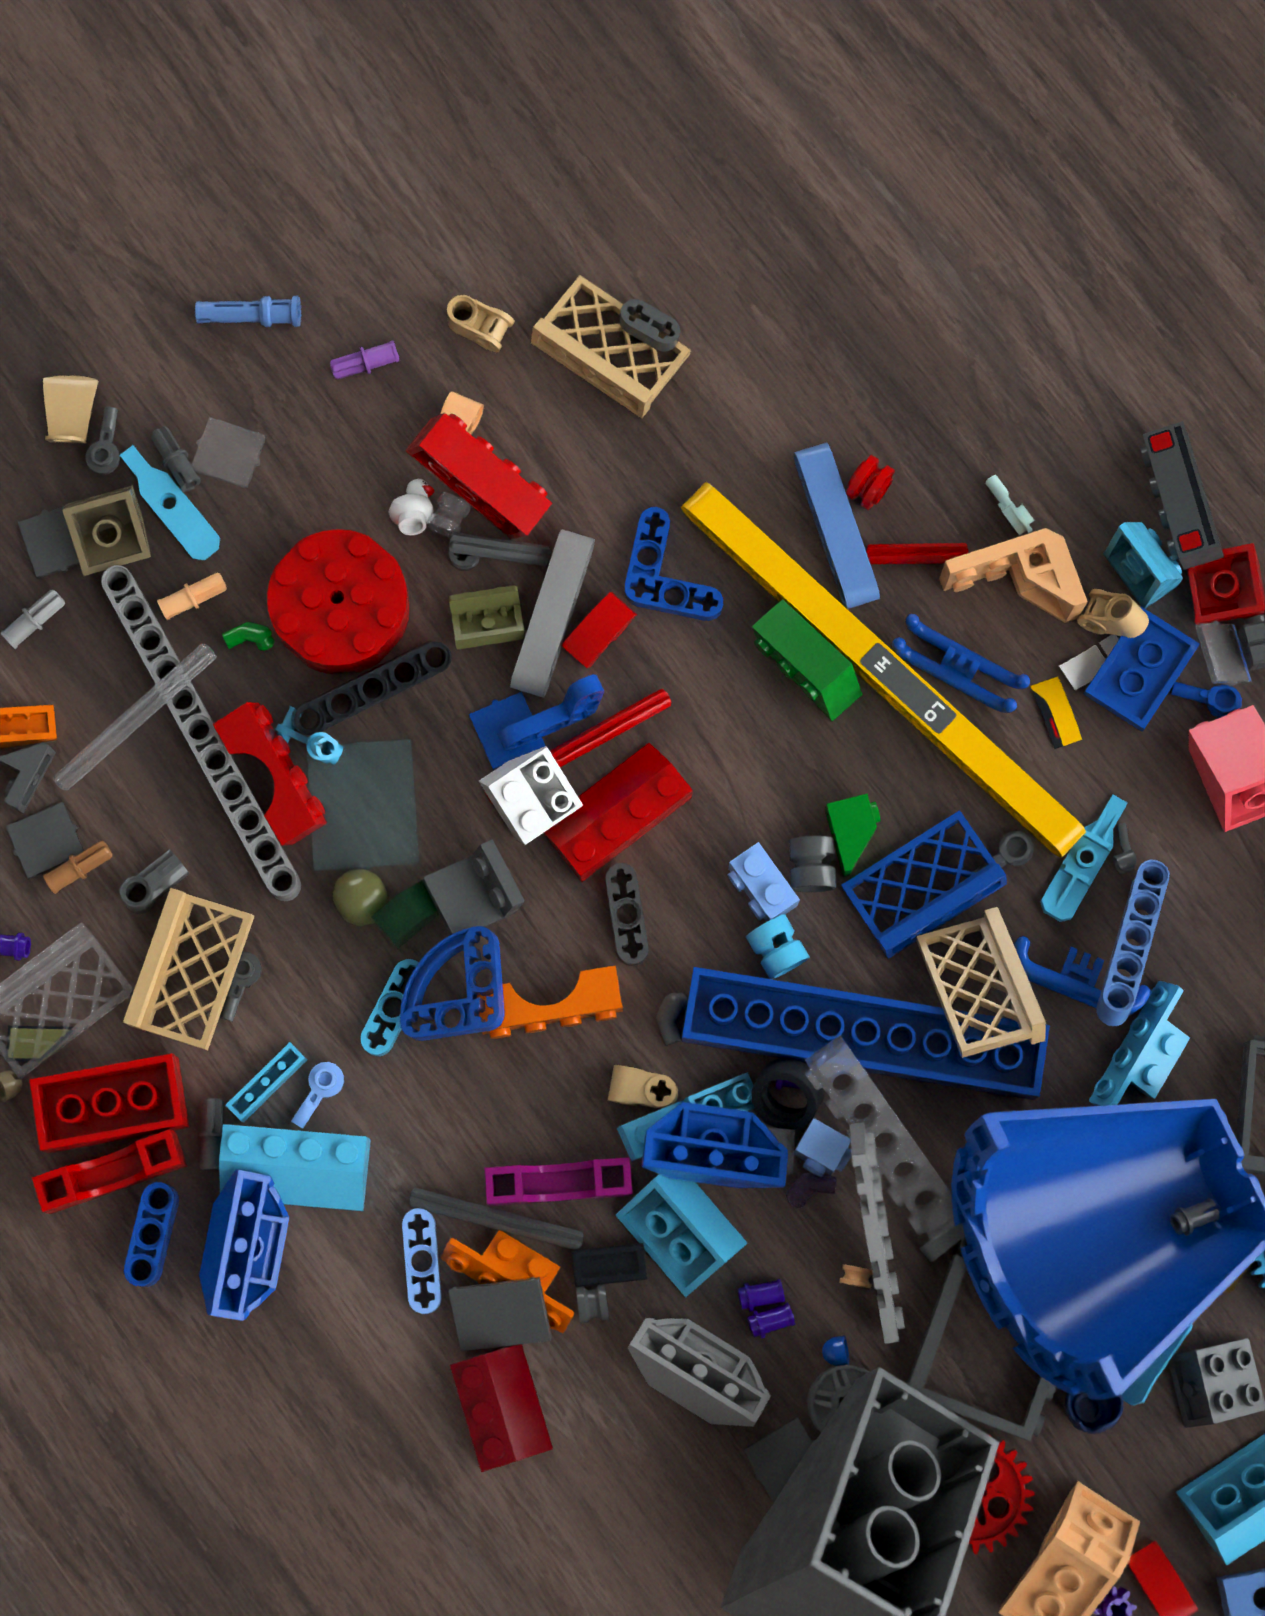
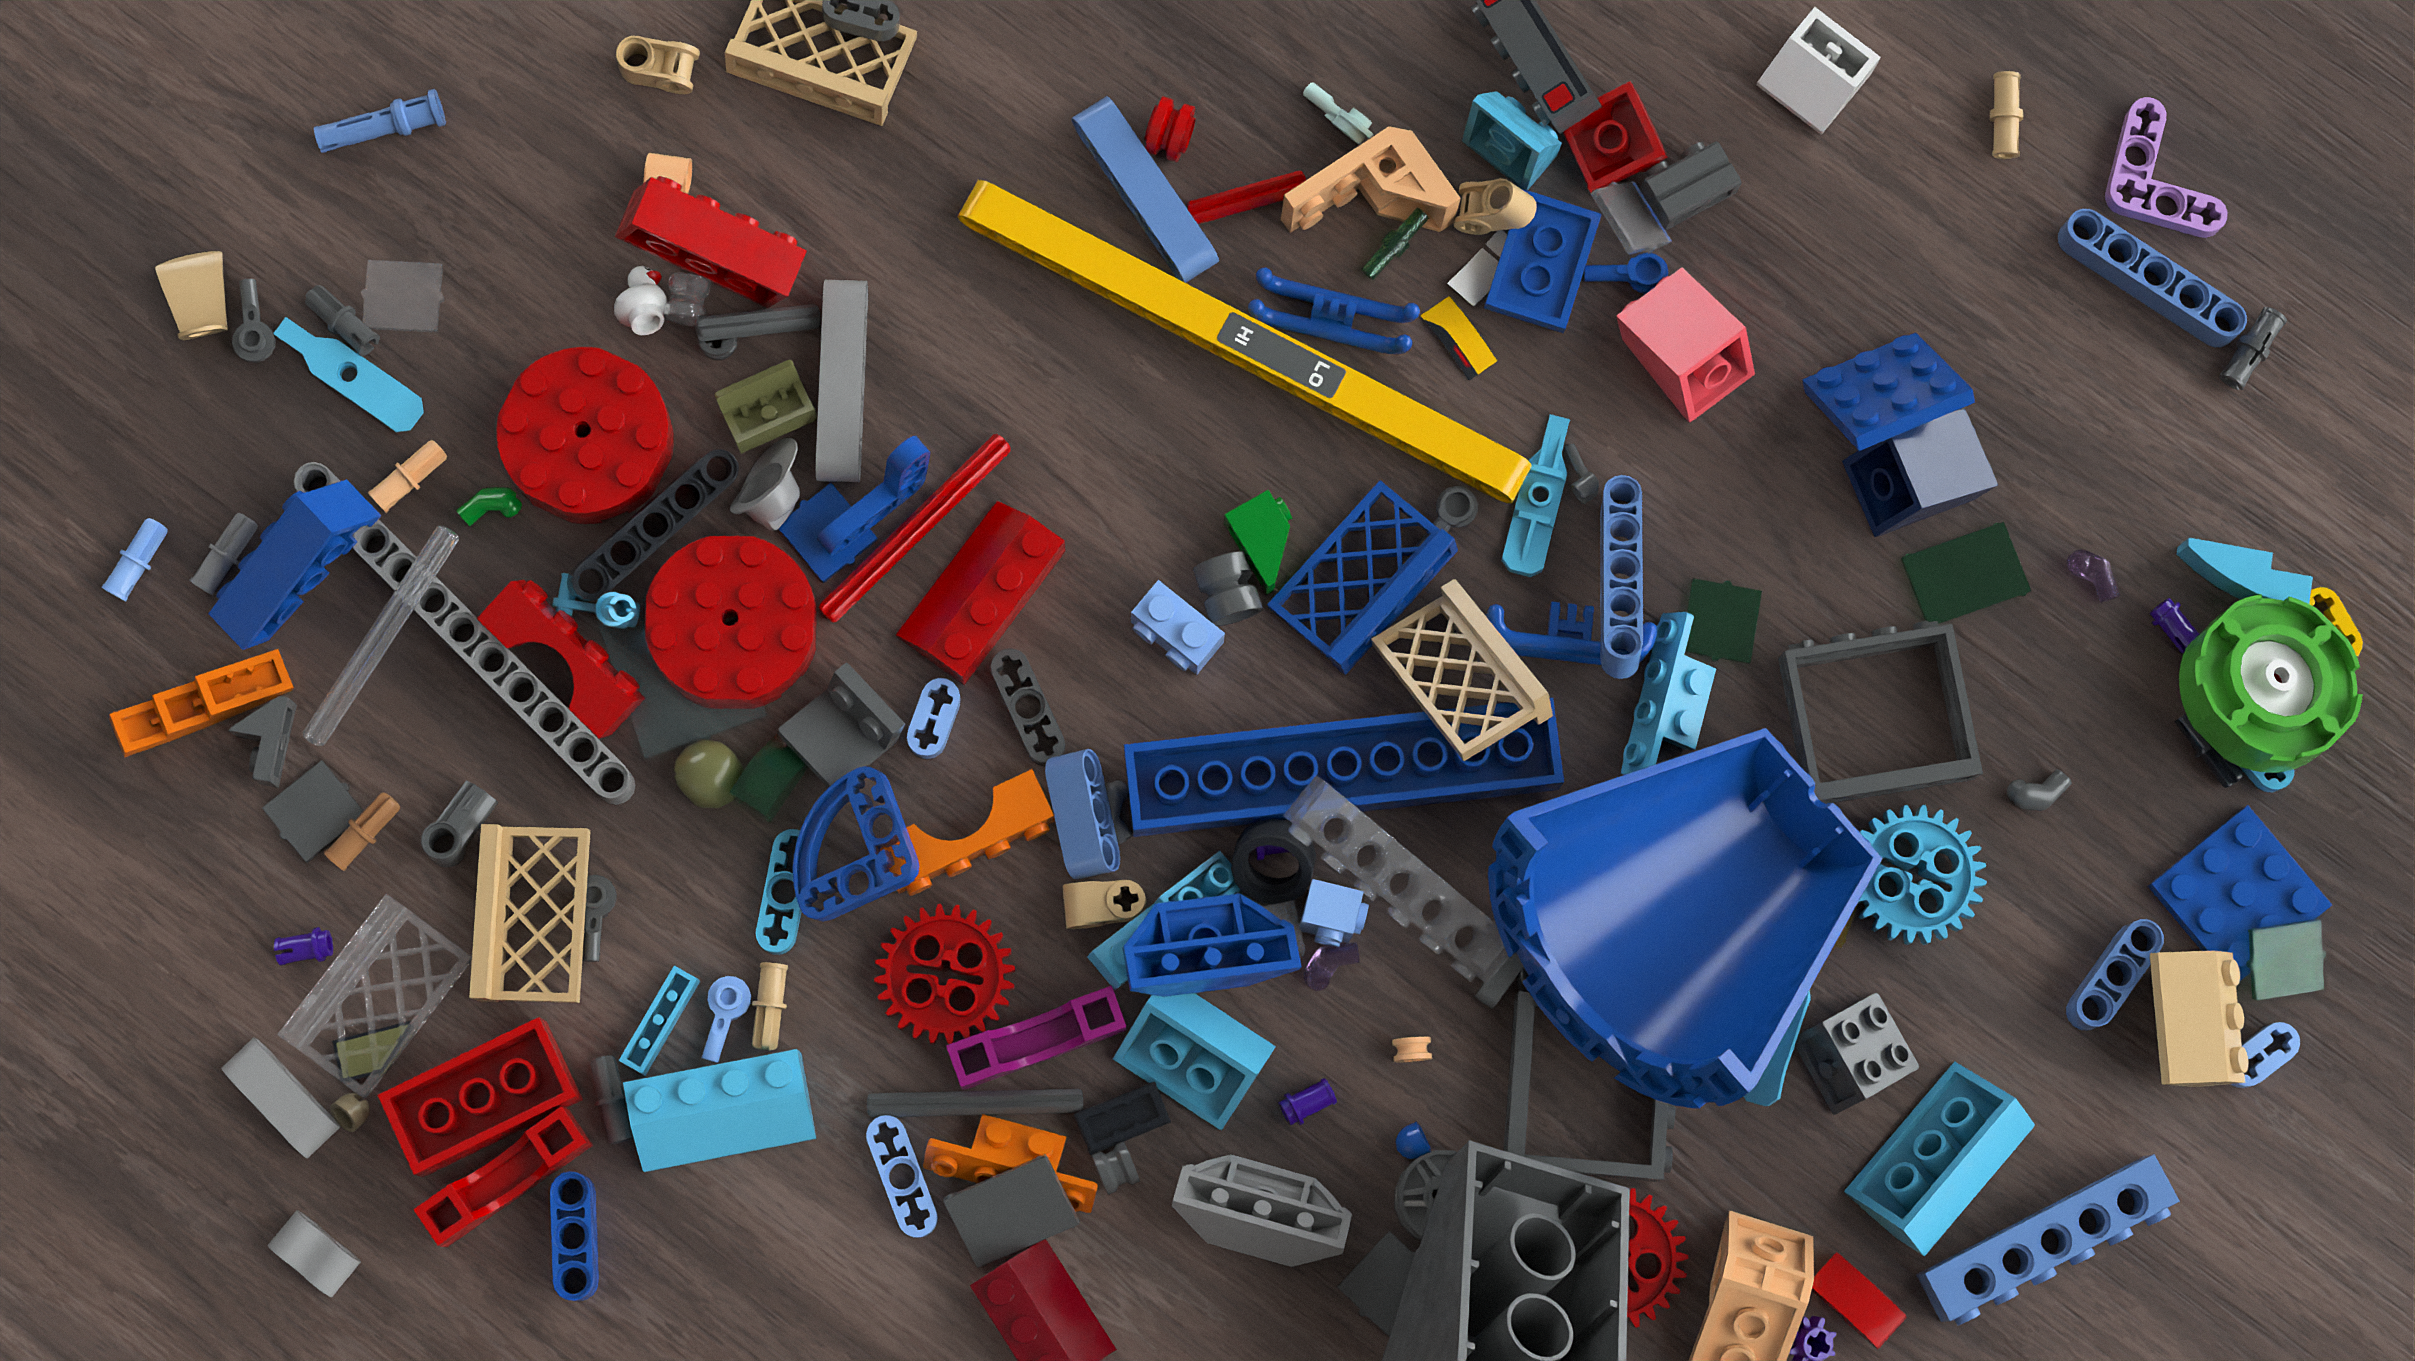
camera: 25 degrees left, 0 degrees up
(48, 542) = (223, 455): dark grey piece -> none
(81, 639) = (290, 561): none -> blue wedge
(107, 530) = (284, 425): dark tan slope -> none
(243, 1246) = (686, 1217): blue wedge -> none
(355, 1095) = (769, 1006): none -> tan axle
(364, 360) = (535, 144): medium lavender axle -> none
(403, 748) = (721, 582): none -> red piece
(472, 682) = (770, 486): none -> light grey piece
(515, 1080) = (953, 936): none -> red gear
(531, 794) = (876, 597): white slope -> none
(543, 896) = (943, 722): none -> light blue beam
(599, 629) = (901, 385): red slope -> none
(645, 1012) = (1082, 814): none -> medium blue beam
(651, 575) = (944, 307): blue beam -> none
(770, 1320) = (1327, 1128): dark purple pin -> none
(780, 959) = (1227, 704): medium azure wheel -> none
(807, 659) = (1155, 353): green wedge -> none
(876, 1227) = (1420, 984): light grey wing -> none
(1025, 622) = (1395, 243): none -> clear green bar
(1093, 1415) = (1725, 1126): dark blue hair -> none
(1185, 1220) = (1769, 876): dark grey pin -> none
(1206, 1000) = (1722, 620): none -> clear green piece

